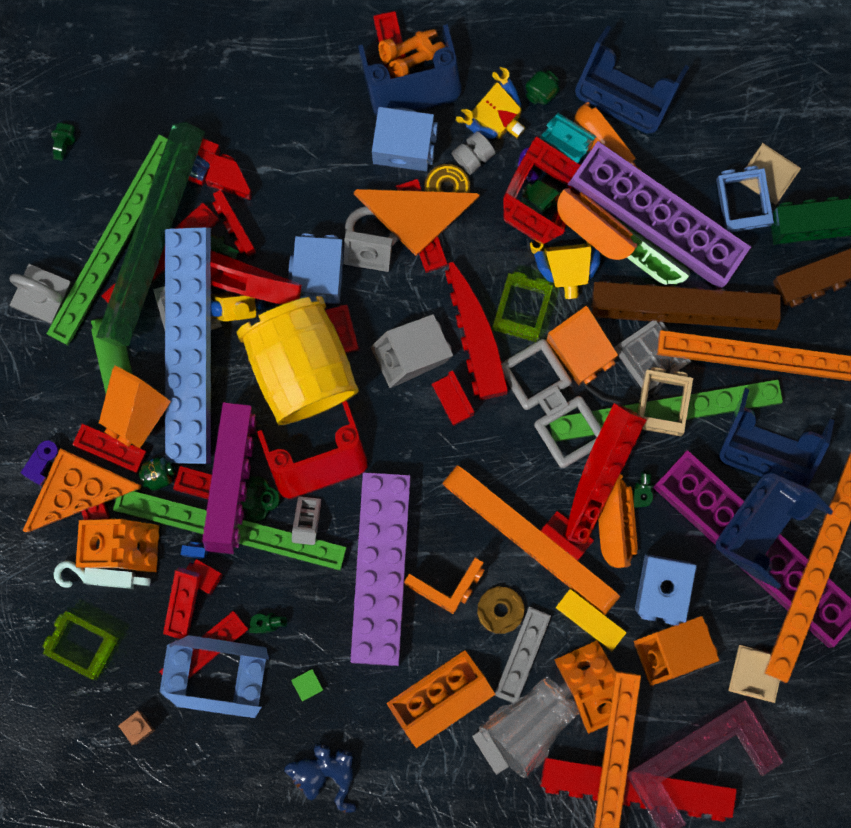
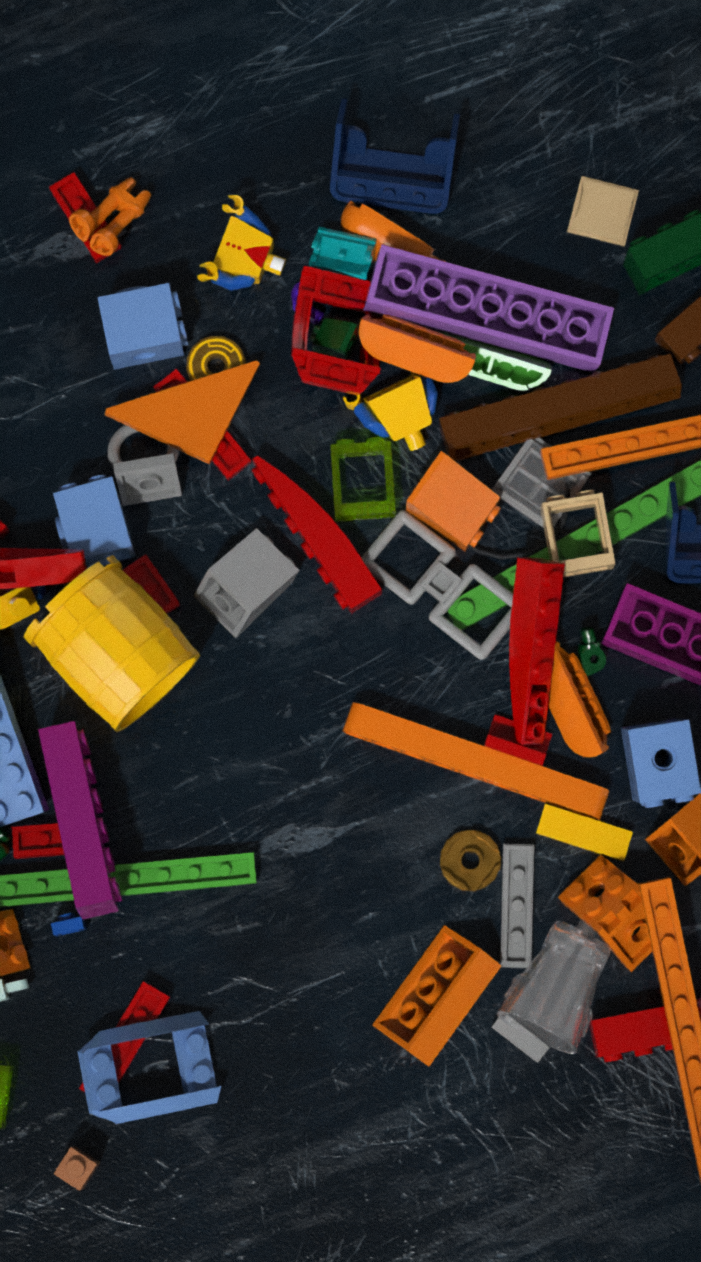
camera: 20 degrees left, 0 degrees up
(181, 603) = (76, 994): red plate -> none
(209, 577) = (89, 952): red brick -> none
(255, 500) = (121, 837): dark green plate -> none
(270, 623) = (194, 981): dark green piece -> none
(301, 533) = (195, 854): light grey slope -> none
(307, 685) = (267, 1038): bright green tile -> none
(310, 774) = (312, 1145): dark blue animal -> none
(321, 470) = (189, 768): red windscreen -> none
(380, 569) = (306, 864): medium lavender brick -> none
(418, 89) = (136, 259): dark blue windscreen -> none
(453, 399) = (318, 623): red panel -> none
(461, 593) = (416, 857): orange bracket -> none
(474, 152) = (234, 311): light grey wheel -> none
(542, 87) = (288, 202): dark green head -> none
(746, 223) = (580, 218): medium blue window -> none

